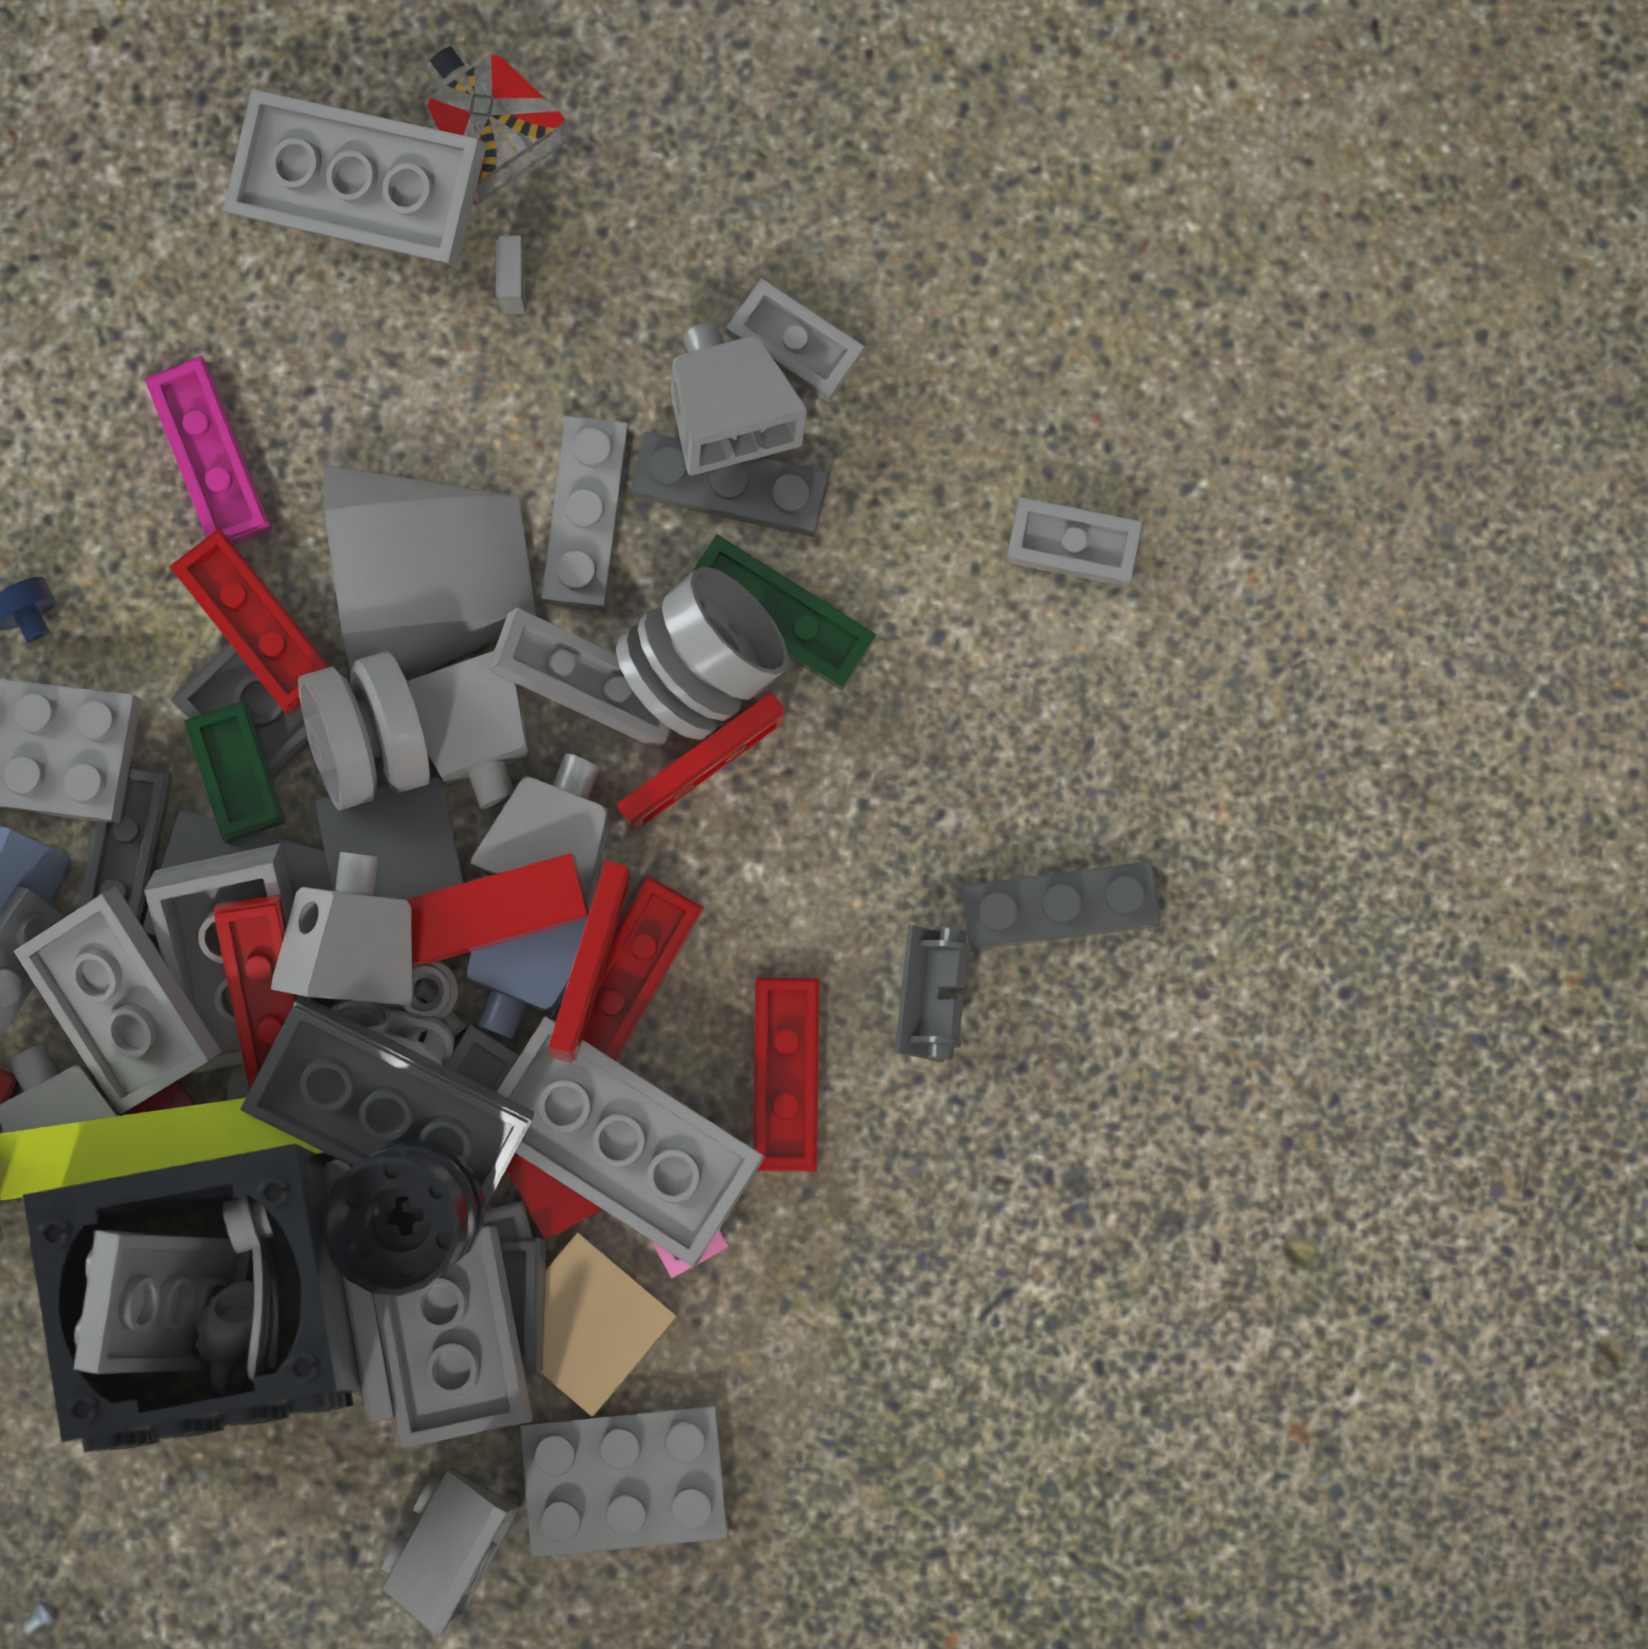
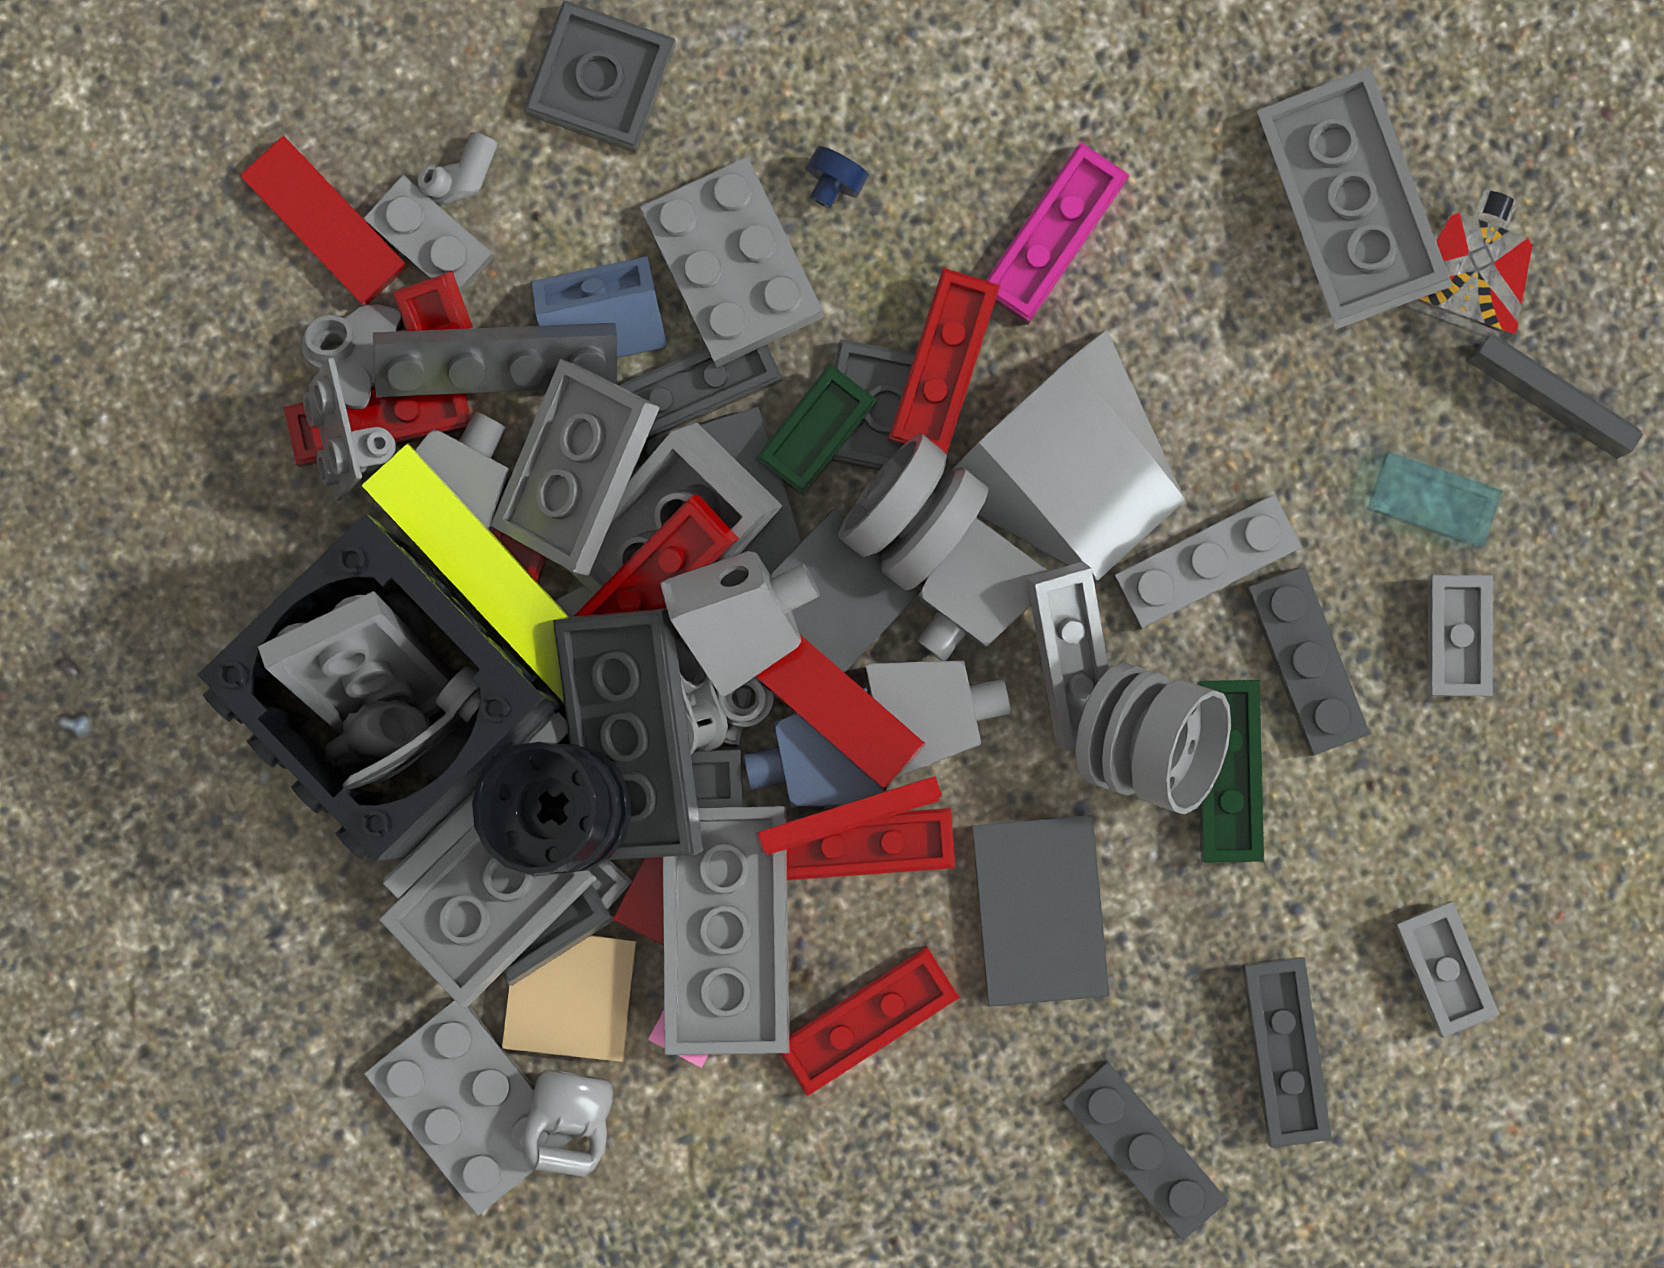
camera: 60 degrees right, 5 degrees up
(449, 1551) = (324, 1011): light grey slope -> none
(510, 274) = (1359, 373): light grey tile -> none
(644, 124) = (1555, 396): none -> dark grey tile
(664, 285) = (1434, 500): none -> clear light blue tile
(683, 1387) = (569, 1106): none -> light grey piece
(702, 762) = (1069, 791): red tile -> none
(732, 401) = (1374, 620): light grey torso -> none
(790, 858) = (1040, 910): none -> dark grey tile
(927, 1016) = (1027, 1082): dark grey hinge -> none
(1055, 725) = (1286, 1052): none -> dark grey plate

